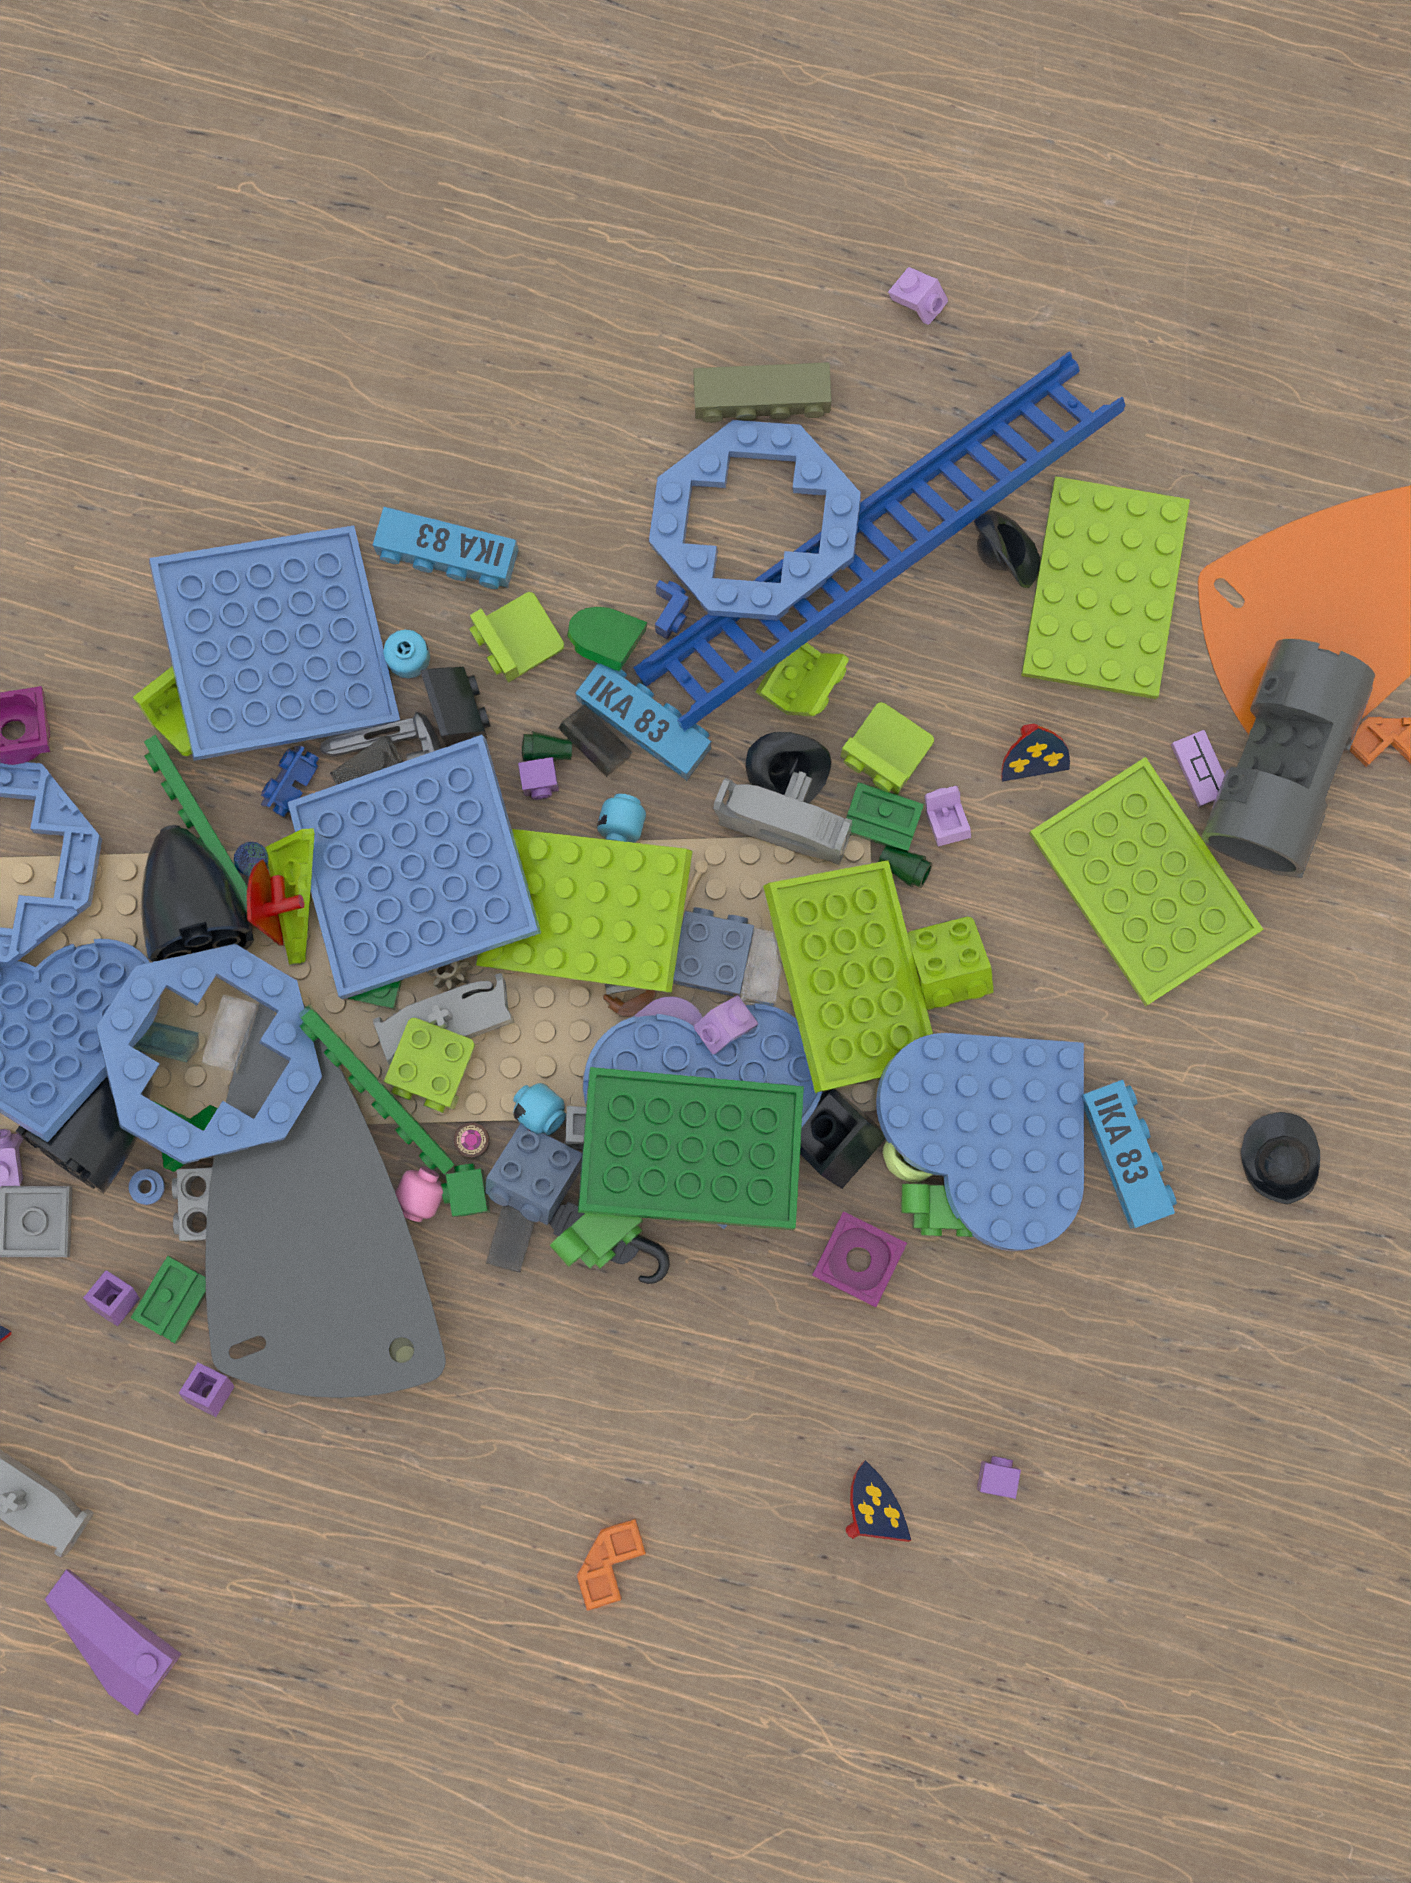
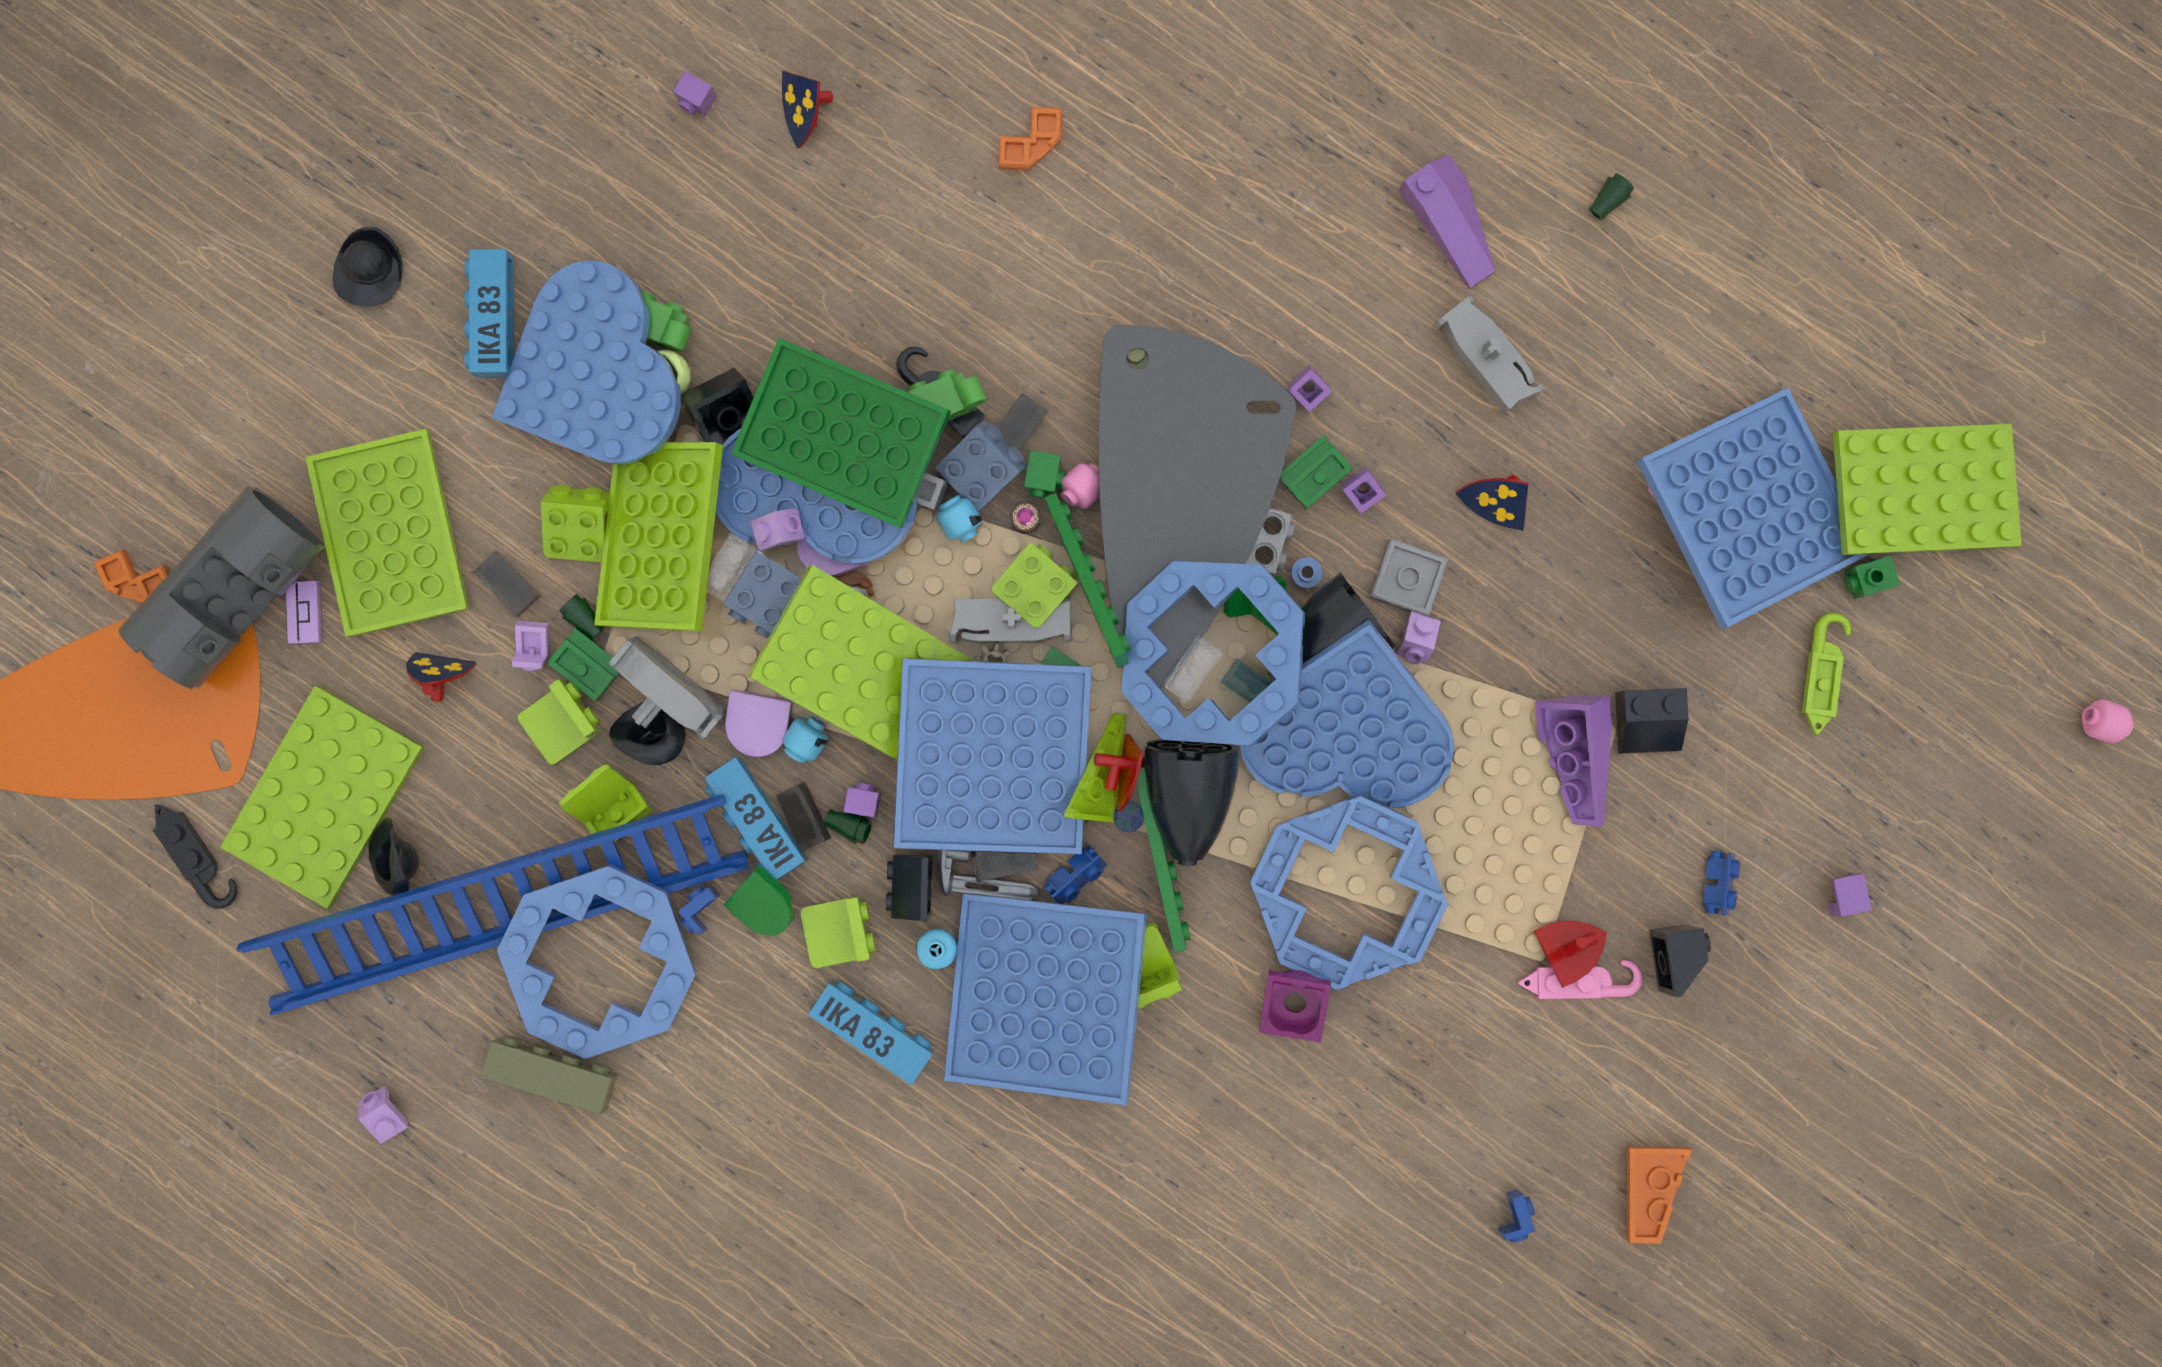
camera: 165 degrees left, 5 degrees up
(680, 818) = (756, 722): none -> lavender tile
(884, 1253) = (737, 285): magenta piece -> none
(998, 872) = (506, 583): none -> clear smoke plate
(1218, 481) = (190, 855): none -> black plate

